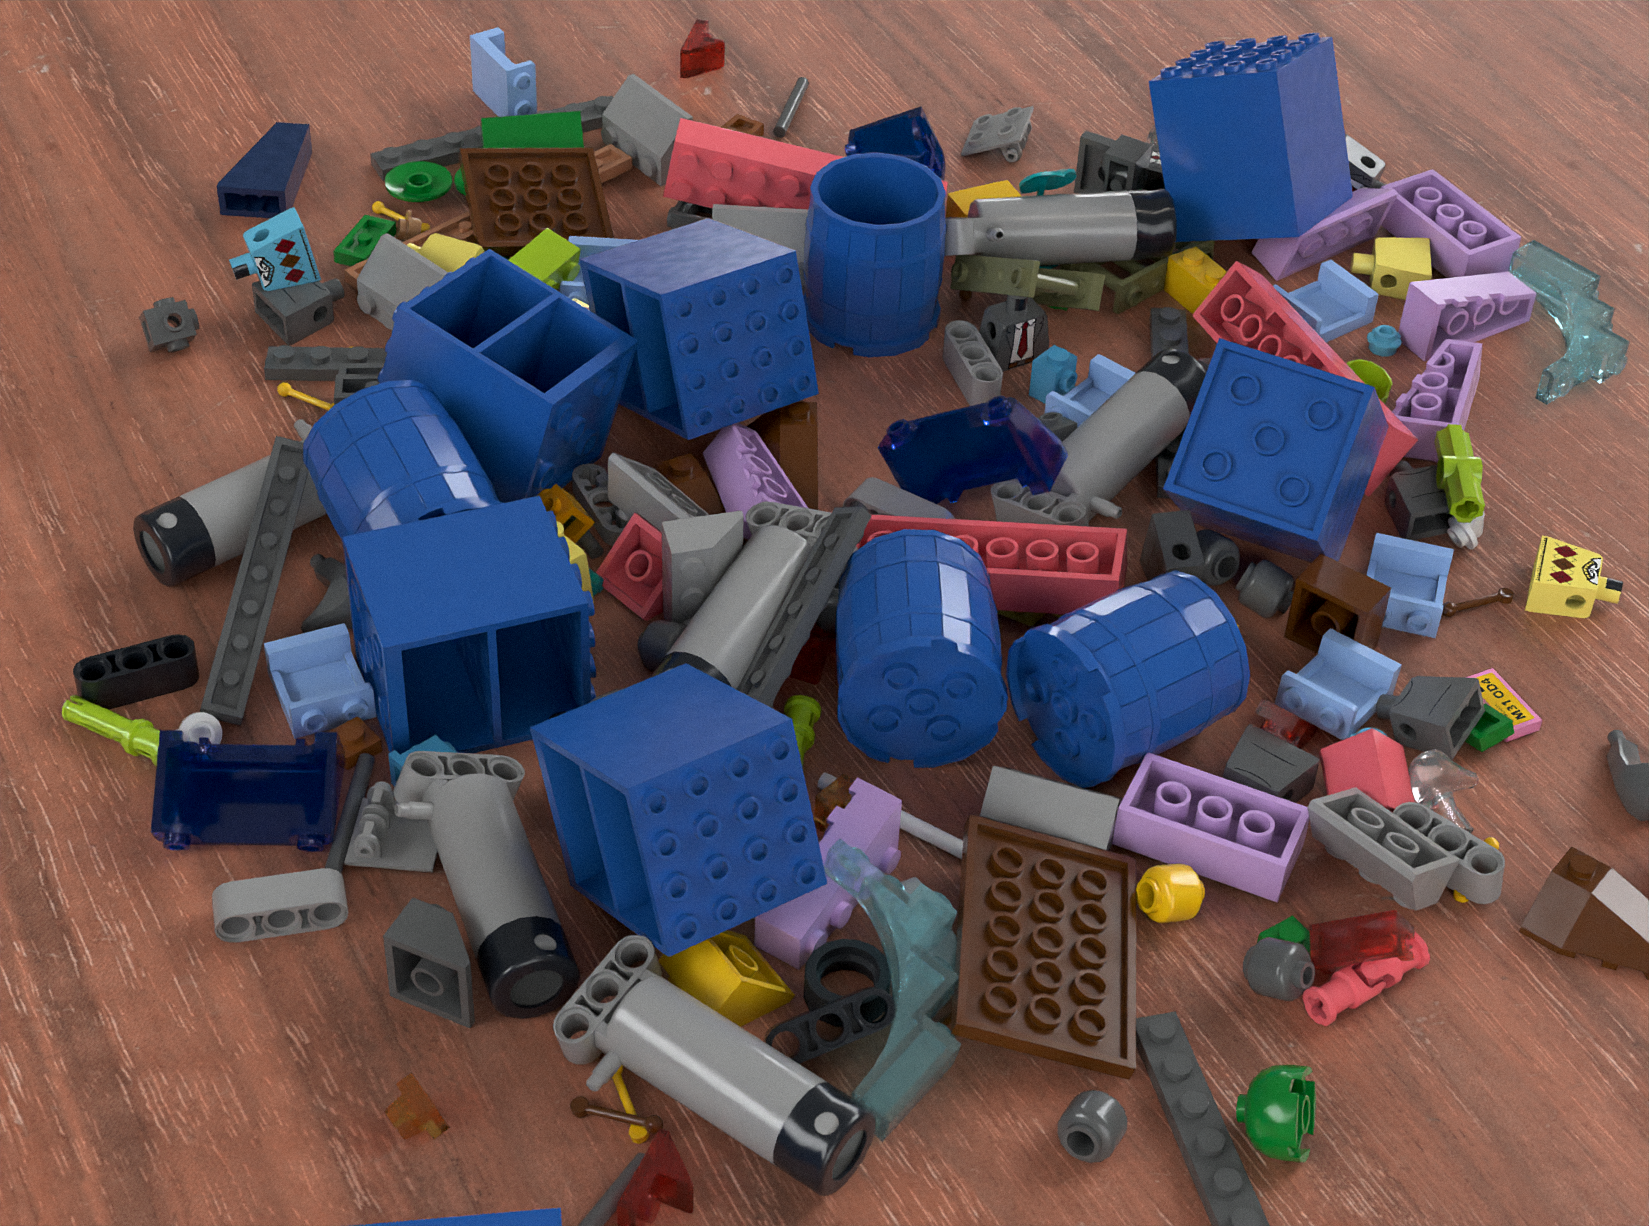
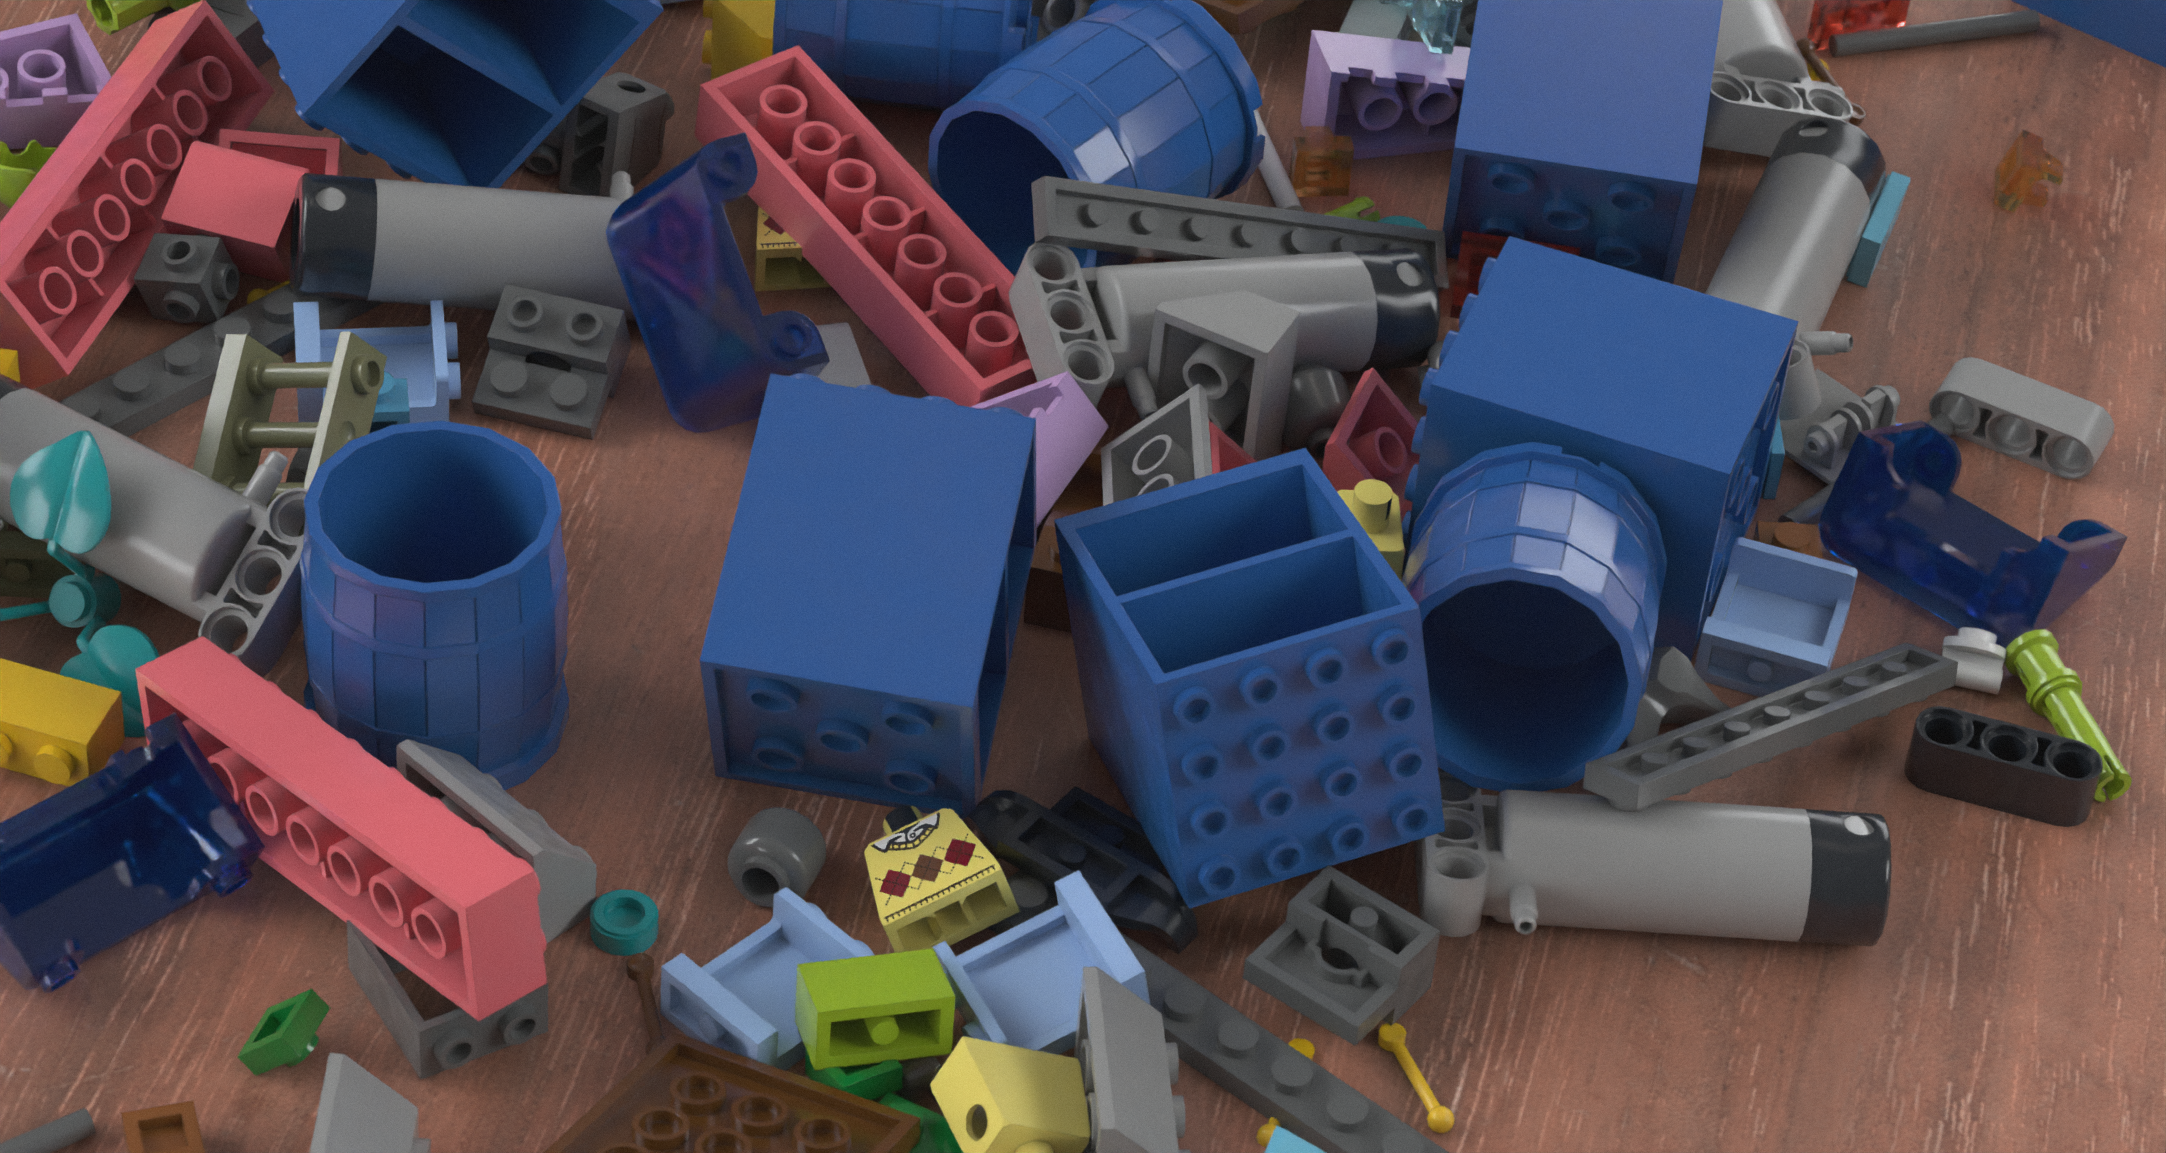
camera: 140 degrees left, 0 degrees up
(430, 962) = (1923, 242): dark grey slope -> none
(481, 1002) = (1878, 229): none -> medium azure tile
(618, 638) = (1372, 440): none -> coral slope

